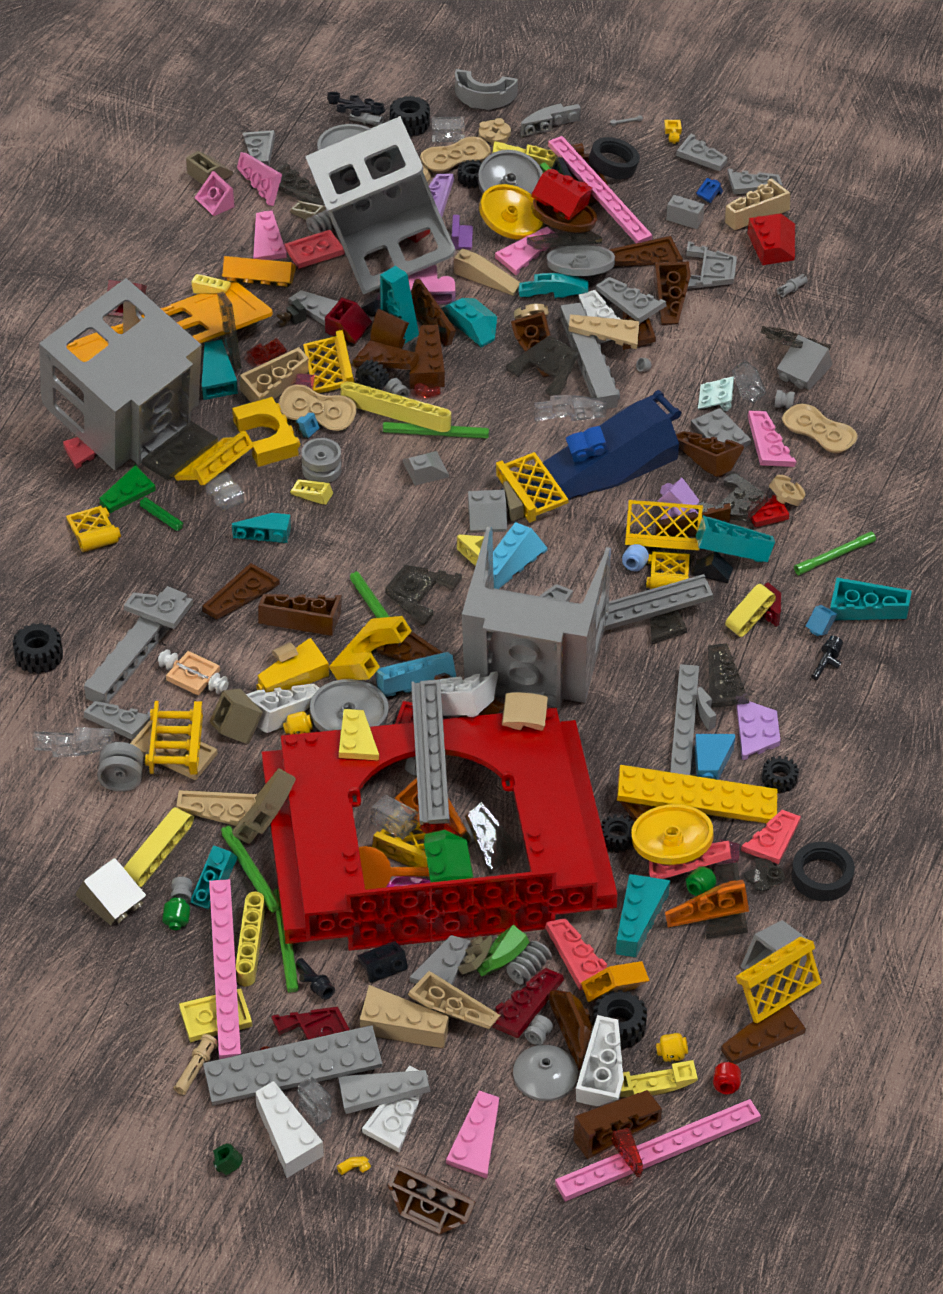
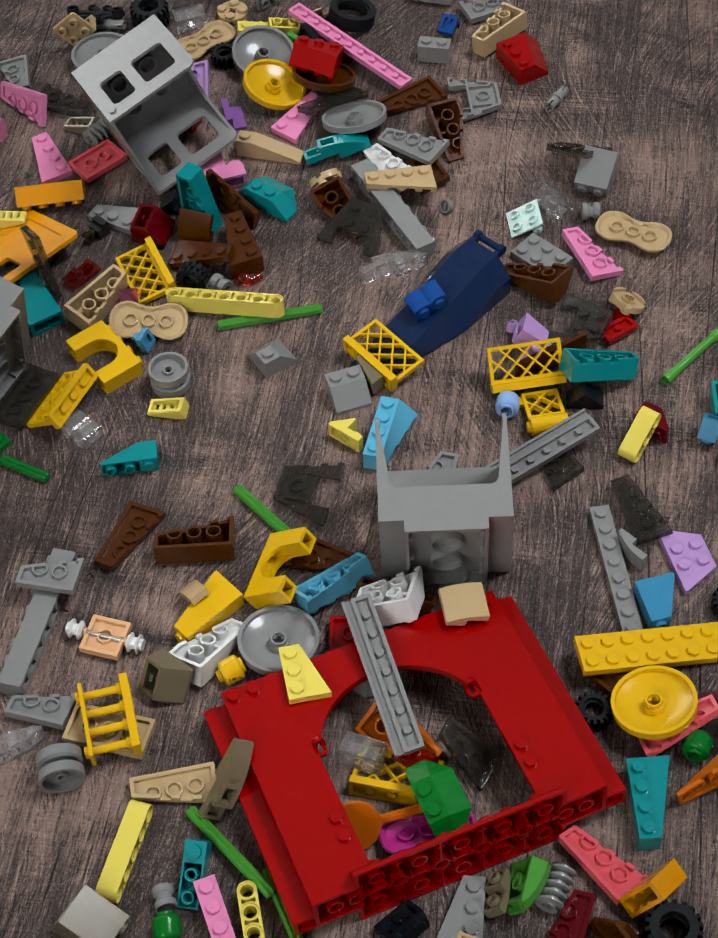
camera: 10 degrees left, 5 degrees up
(329, 114) = (75, 28): none -> tan bracket

